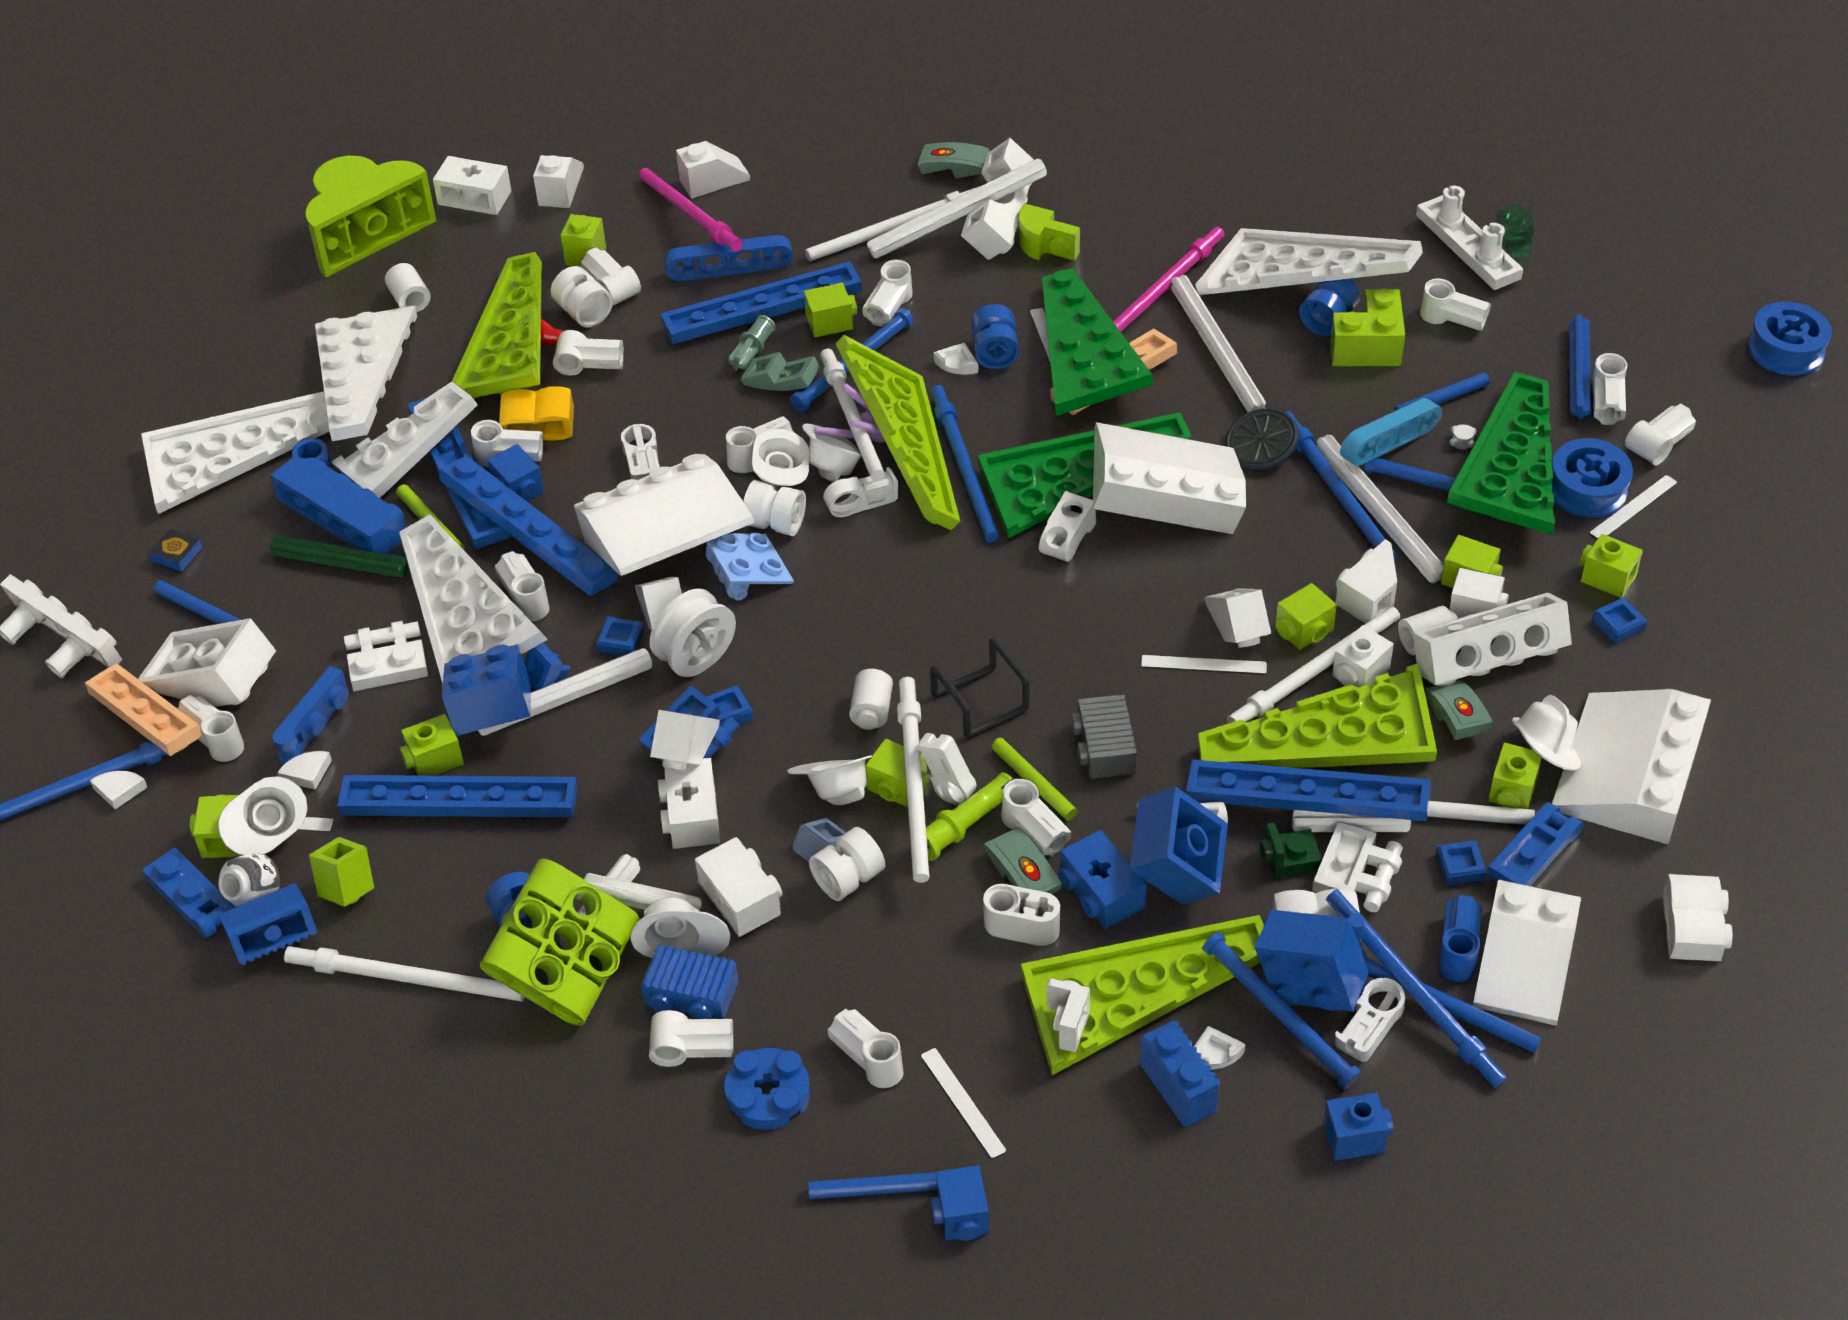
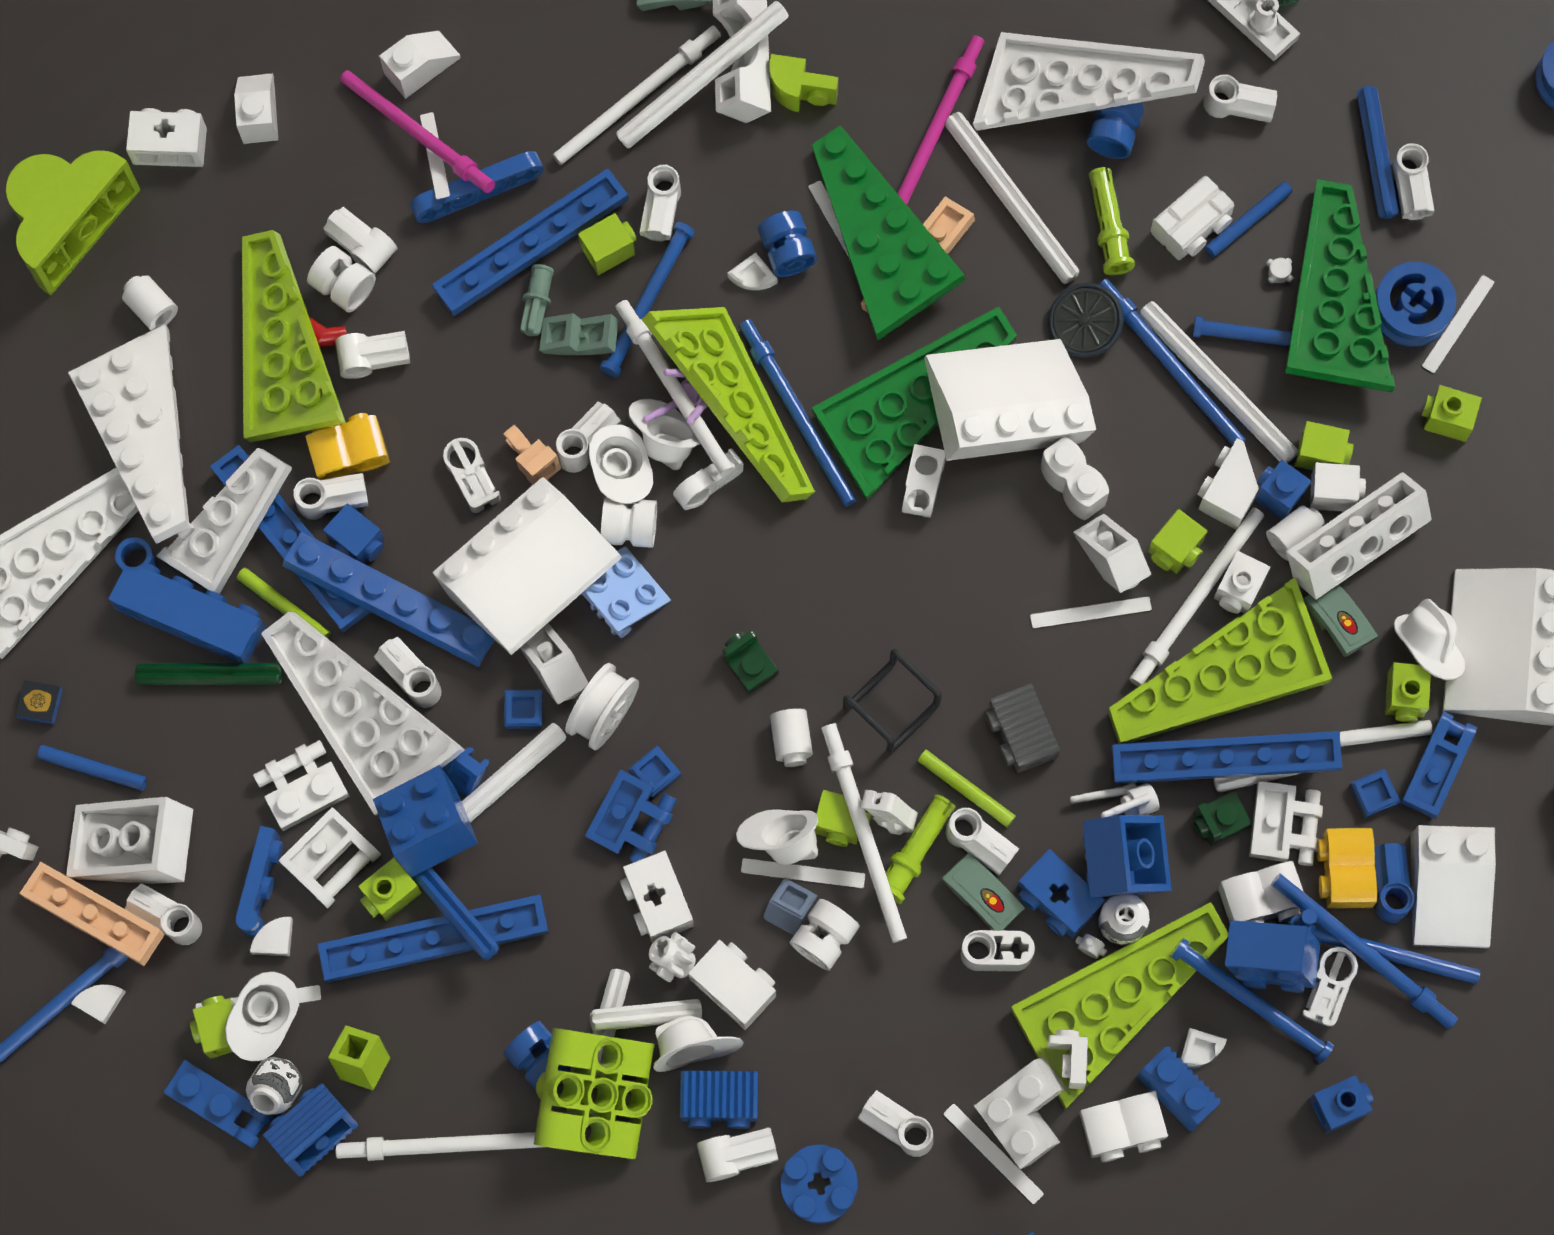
camera: 15 degrees left, 25 degrees up
(382, 704) = (321, 848): none -> white plate
(486, 769) = (457, 913): none -> blue axle
(580, 236) = (315, 197): lime brick -> none
(682, 738) = (637, 841): white slope -> none
(683, 850) = (672, 957): none -> white gear
(697, 235) = (436, 163): none -> white sticker
(710, 444) = (533, 460): none -> light nougat piece
(846, 819) = (803, 873): none -> white sticker
(850, 635) = (748, 661): none -> dark green bracket
(998, 1048) = (1014, 1114): none -> white brick
(1110, 1096) = (1124, 1125): none -> white brick
(1121, 932) = (1091, 946): none -> white piece
(1162, 908) = (1114, 927): none -> white head
(1216, 549) = (1067, 472): none -> white brick
(1305, 383) = (1112, 235): none -> lime pin
(1370, 336) = (1171, 158): lime brick -> none
(1386, 381) = (1193, 218): none -> white brick
(1390, 431) = (1213, 291): dark azure beam -> none
(1416, 915) = (1348, 868): none -> yellow brick
(1421, 589) = (1281, 489): none -> blue brick
(1619, 620) = (1468, 473): blue tile -> none
(1655, 439) = (1468, 235): white piece -> none

